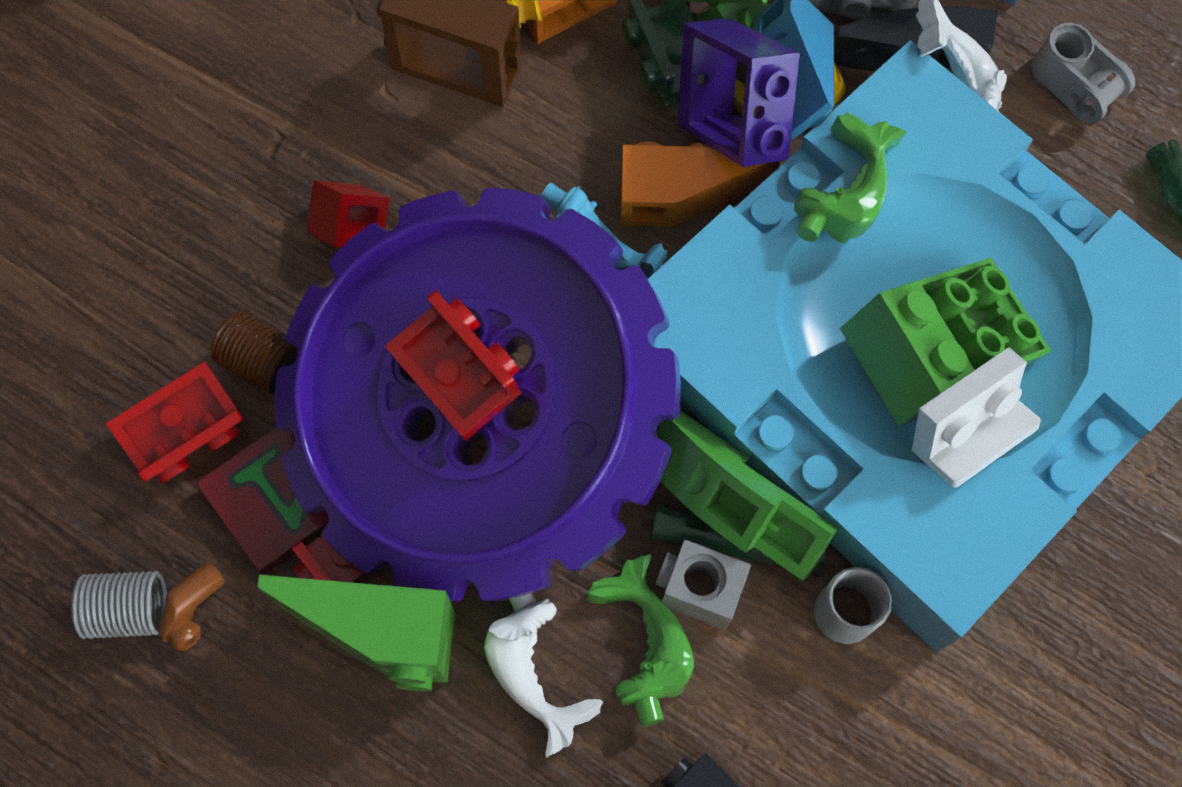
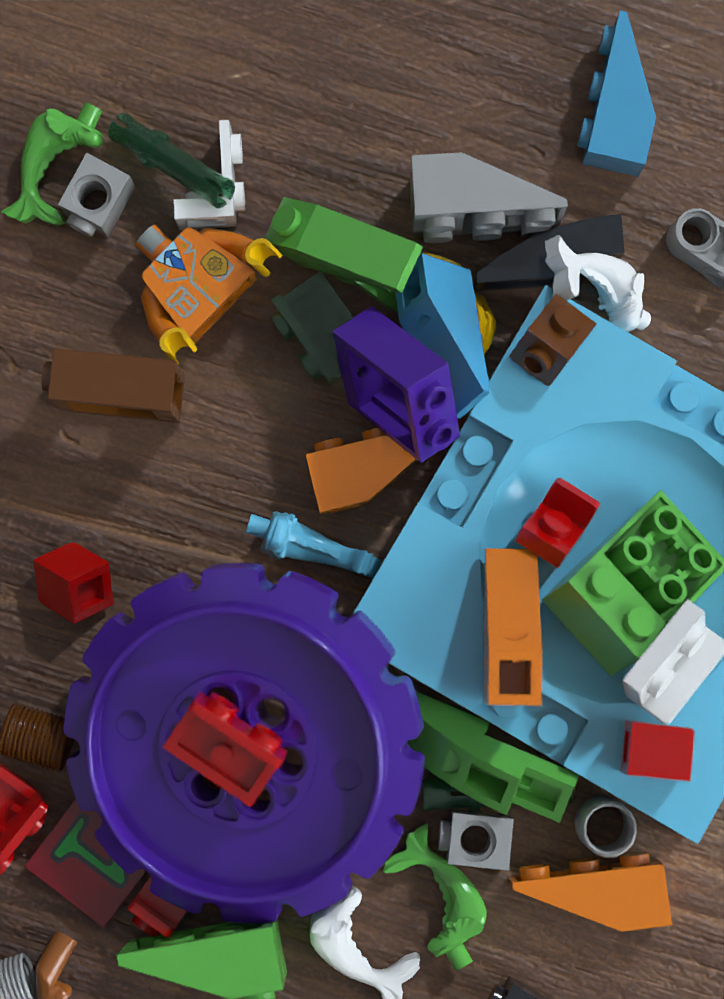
camera: 10 degrees left, 15 degrees up
(801, 346) = (512, 629): none -> orange slope
(843, 688) = (616, 895): none -> orange slope
(852, 210) = (534, 479): bright green animal -> none
(879, 256) = (558, 522): none -> red bracket
(905, 80) = (552, 340): none -> reddish brown bracket
(939, 510) = (657, 751): none -> red panel

